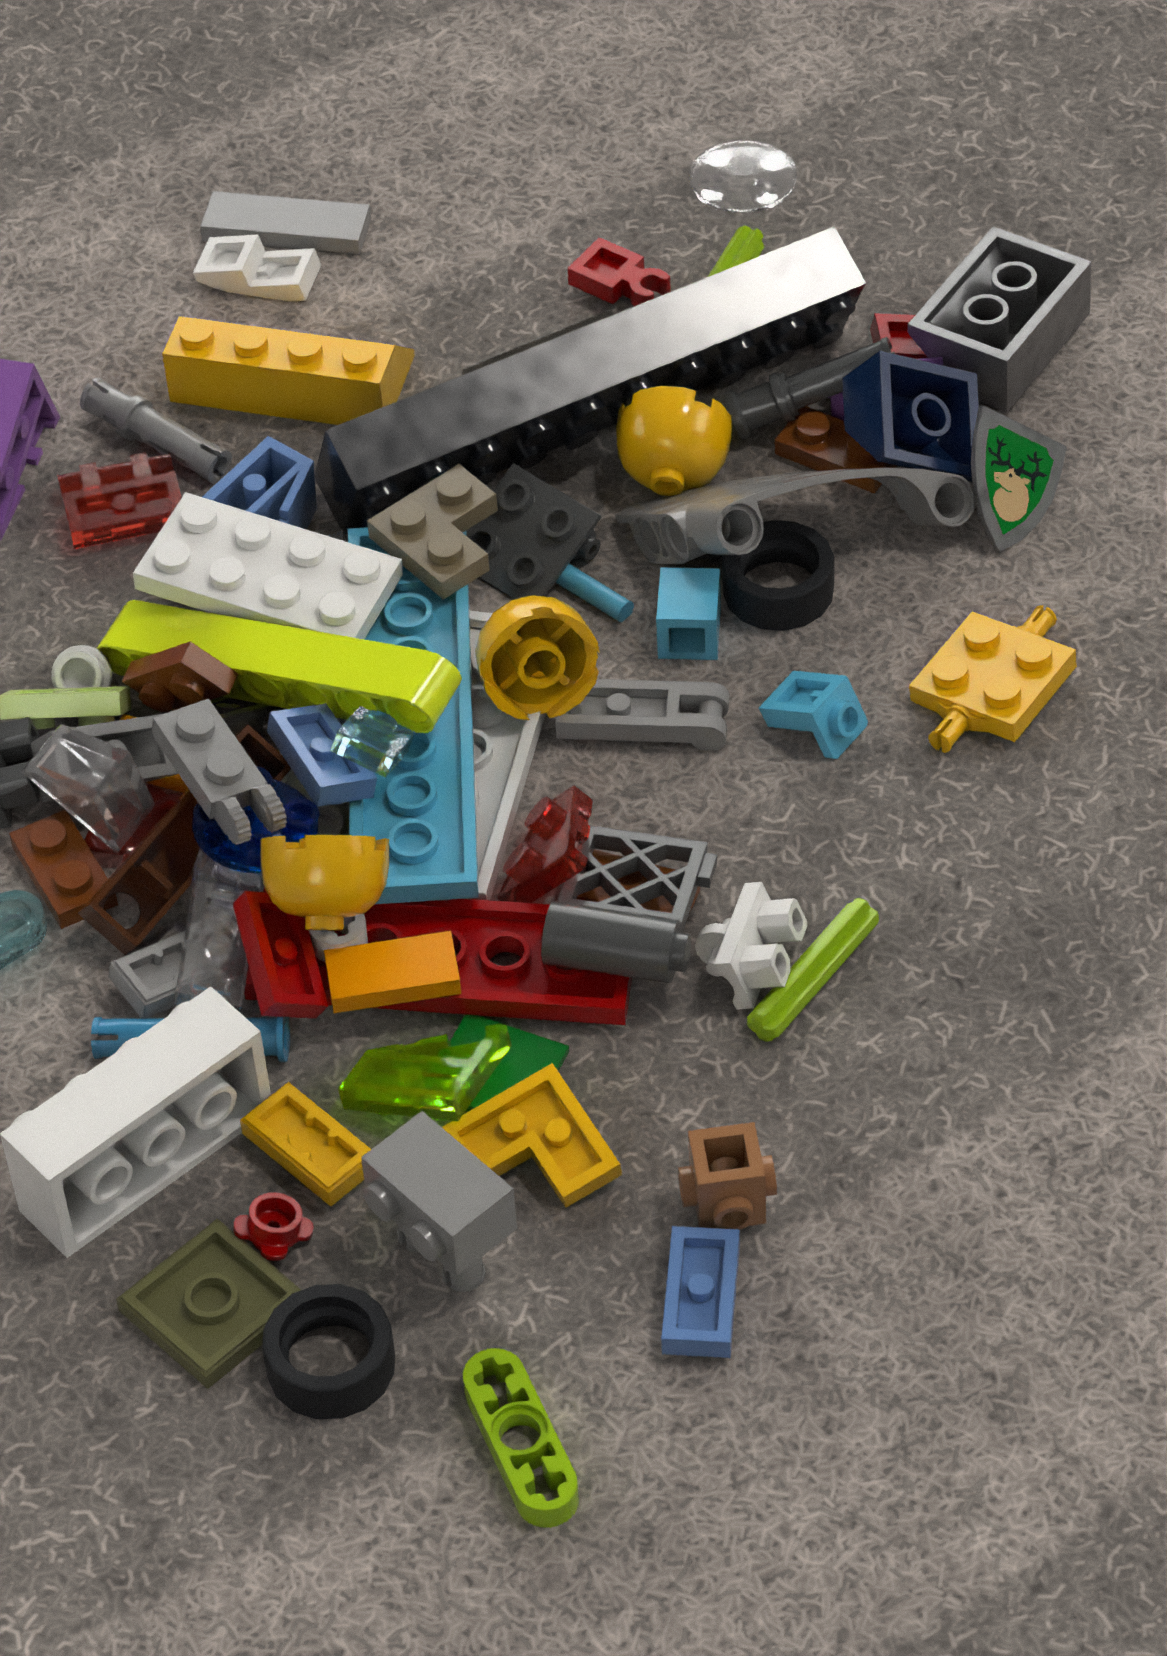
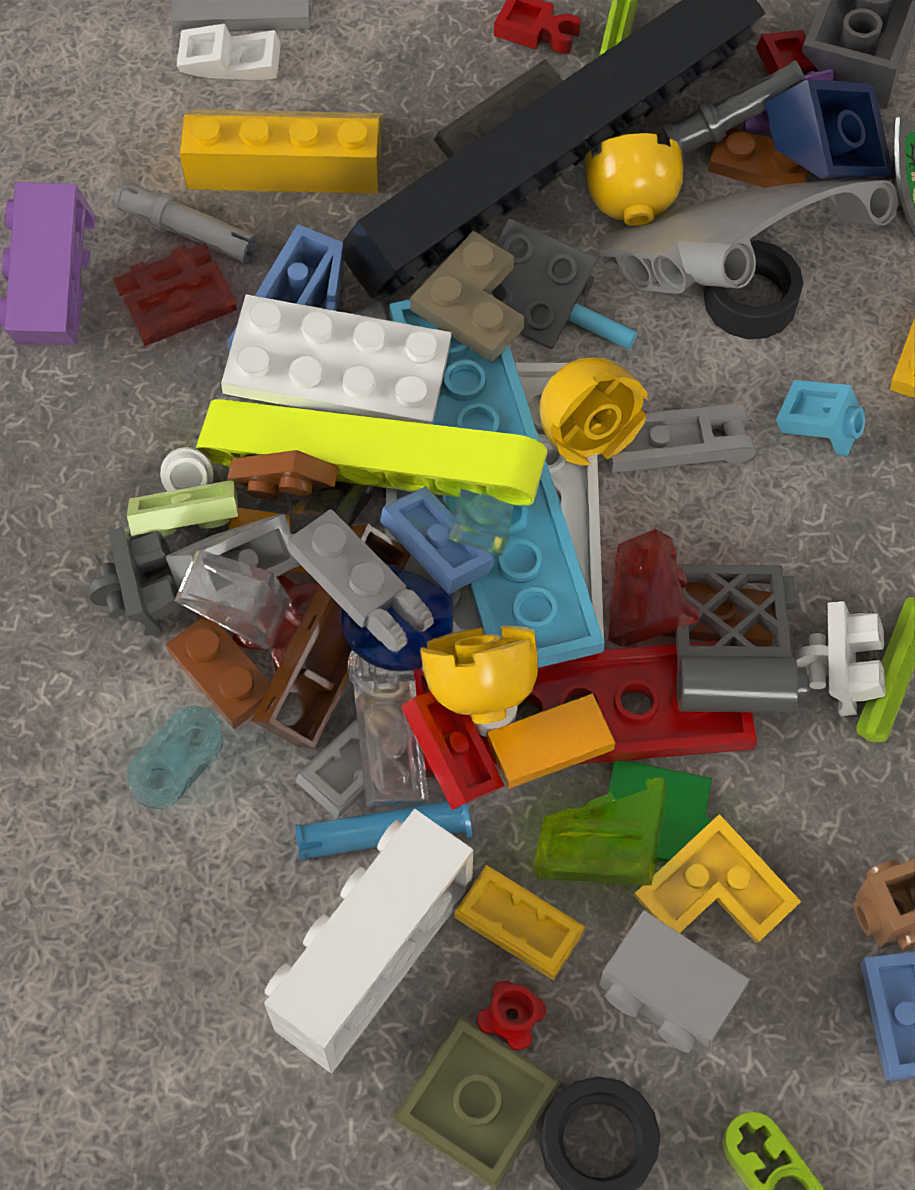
camera: 15 degrees left, 15 degrees up
(688, 613) = (692, 337): medium azure brick -> none

